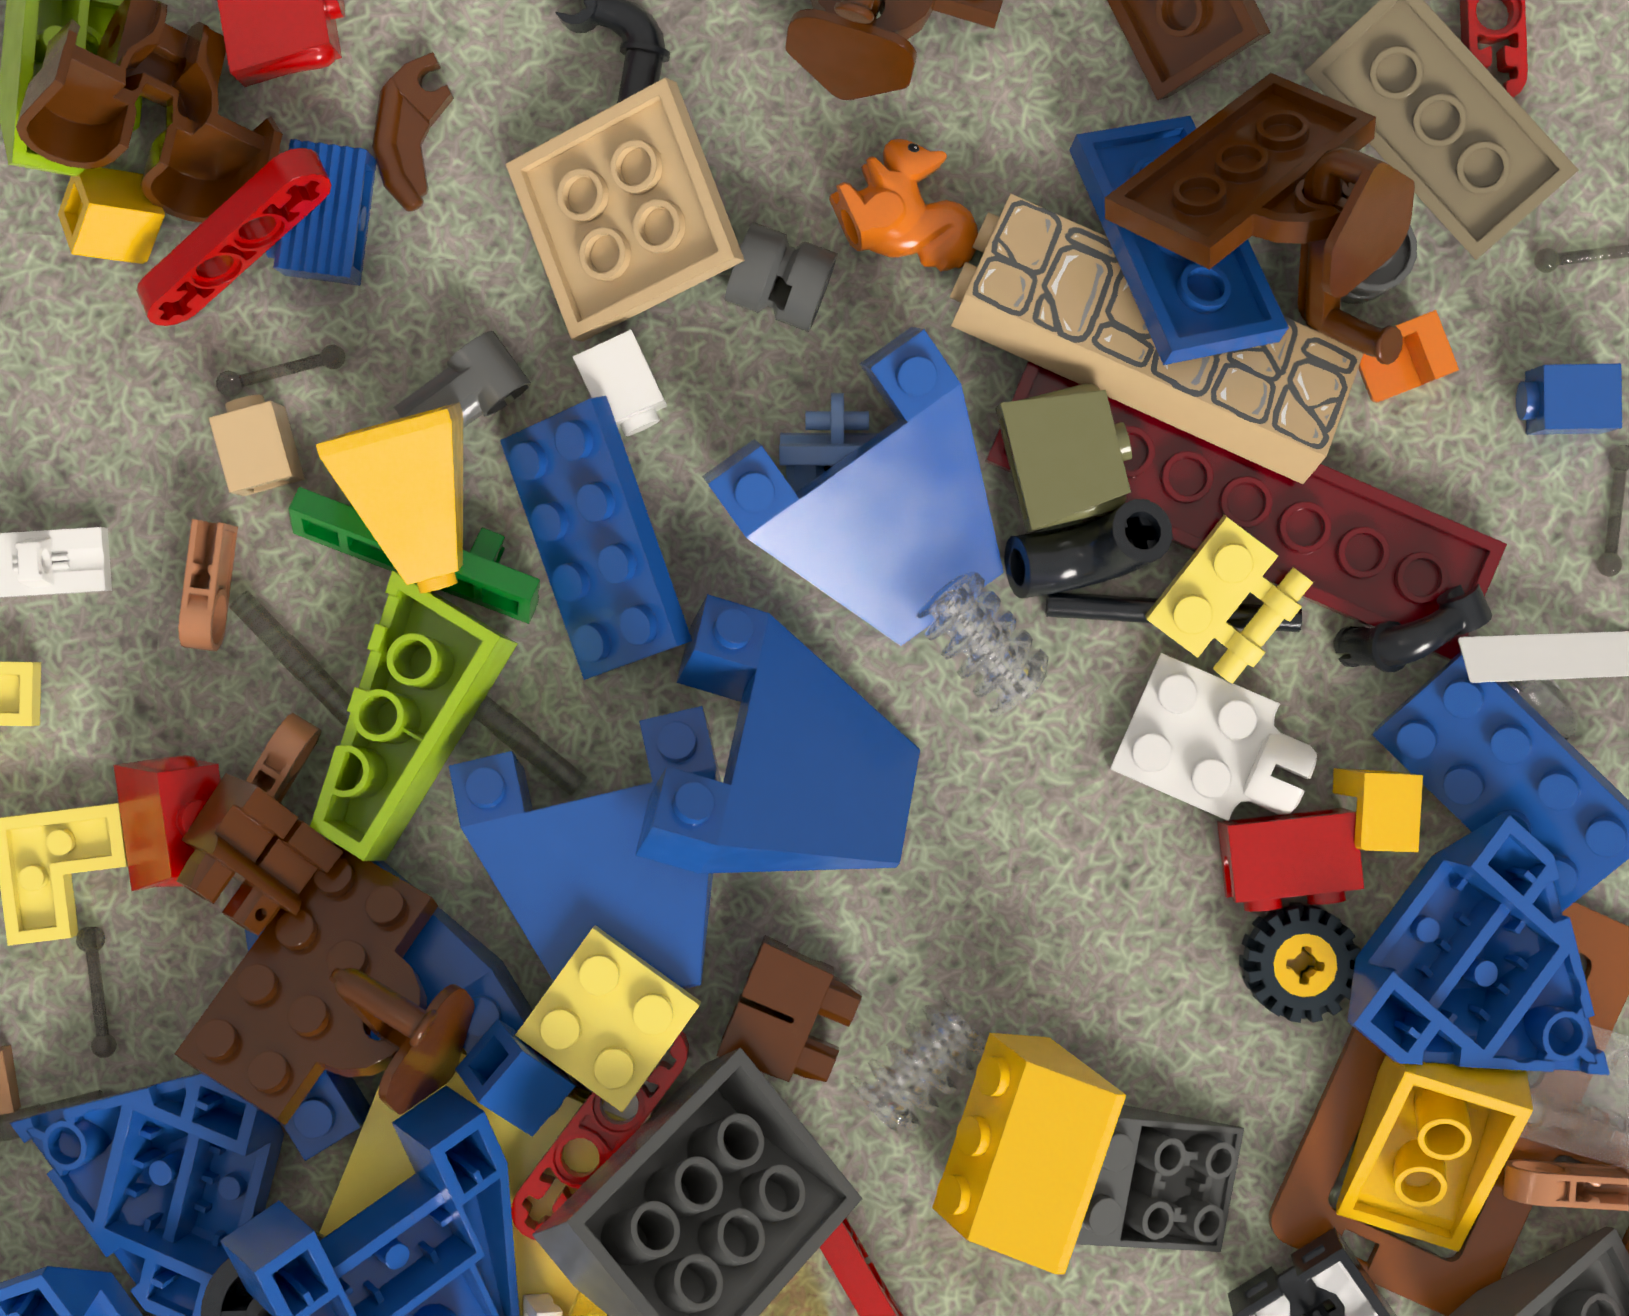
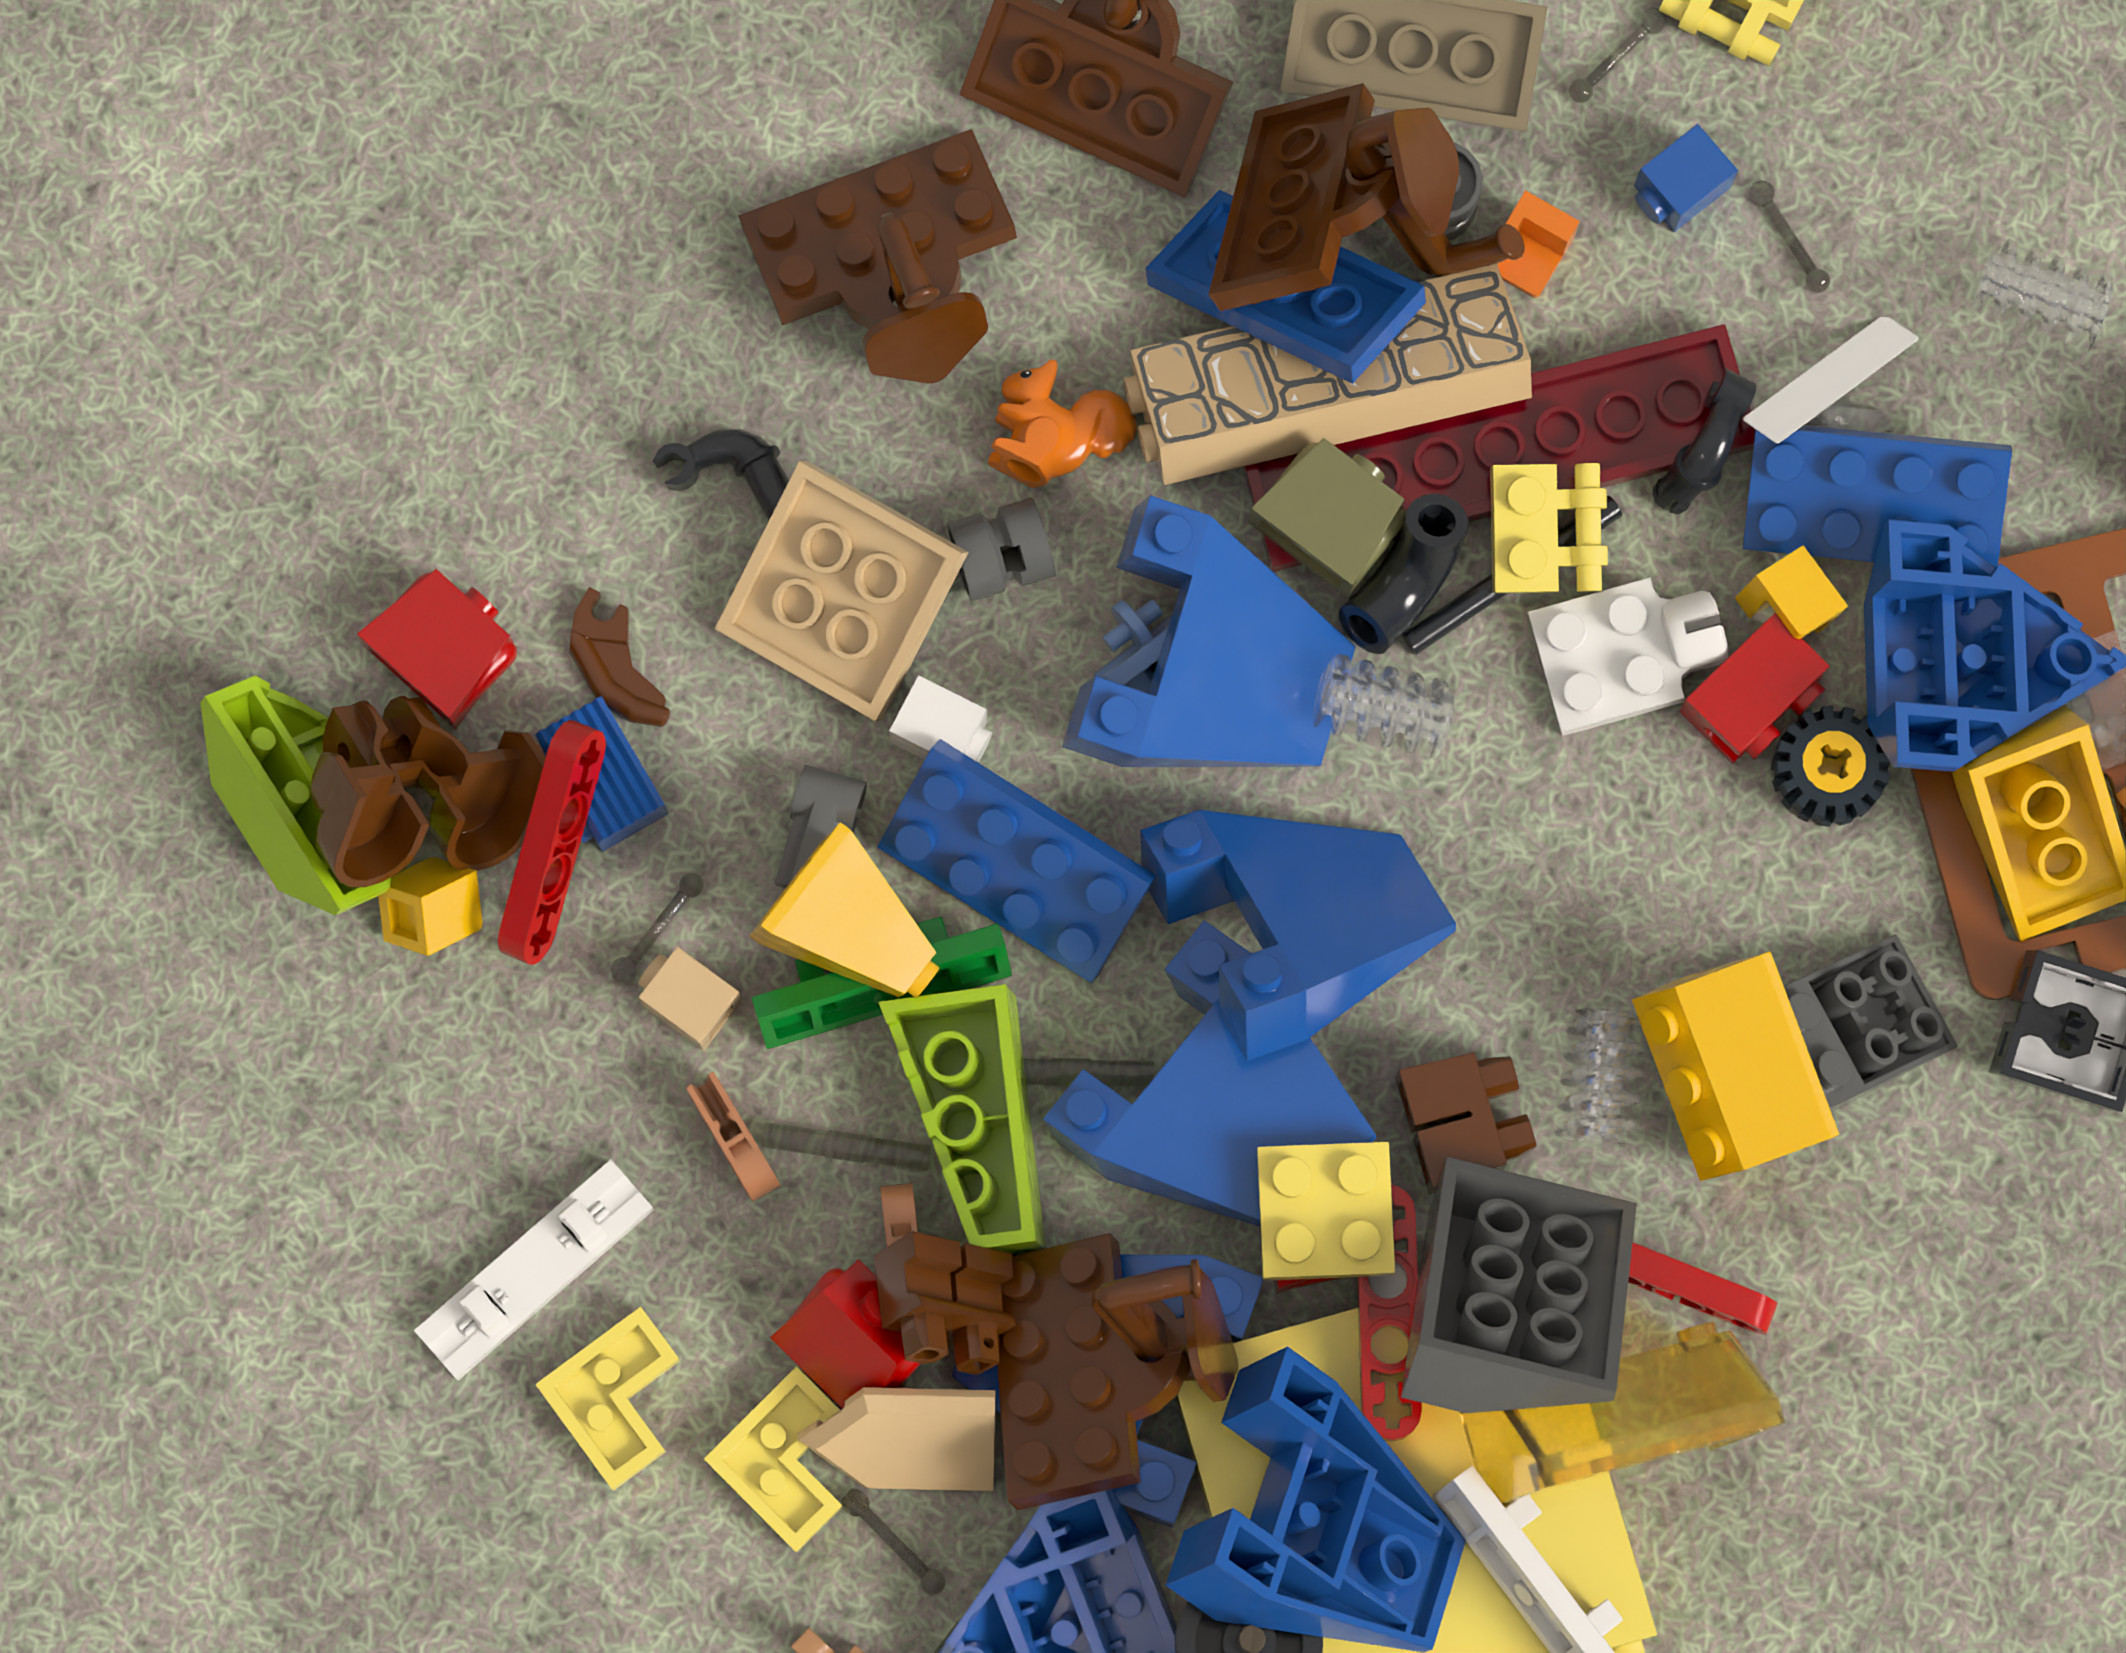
camera: 40 degrees left, 10 degrees down
(157, 932) = (911, 1439): none -> tan tile
(514, 1079) = (1289, 1312): blue brick -> none

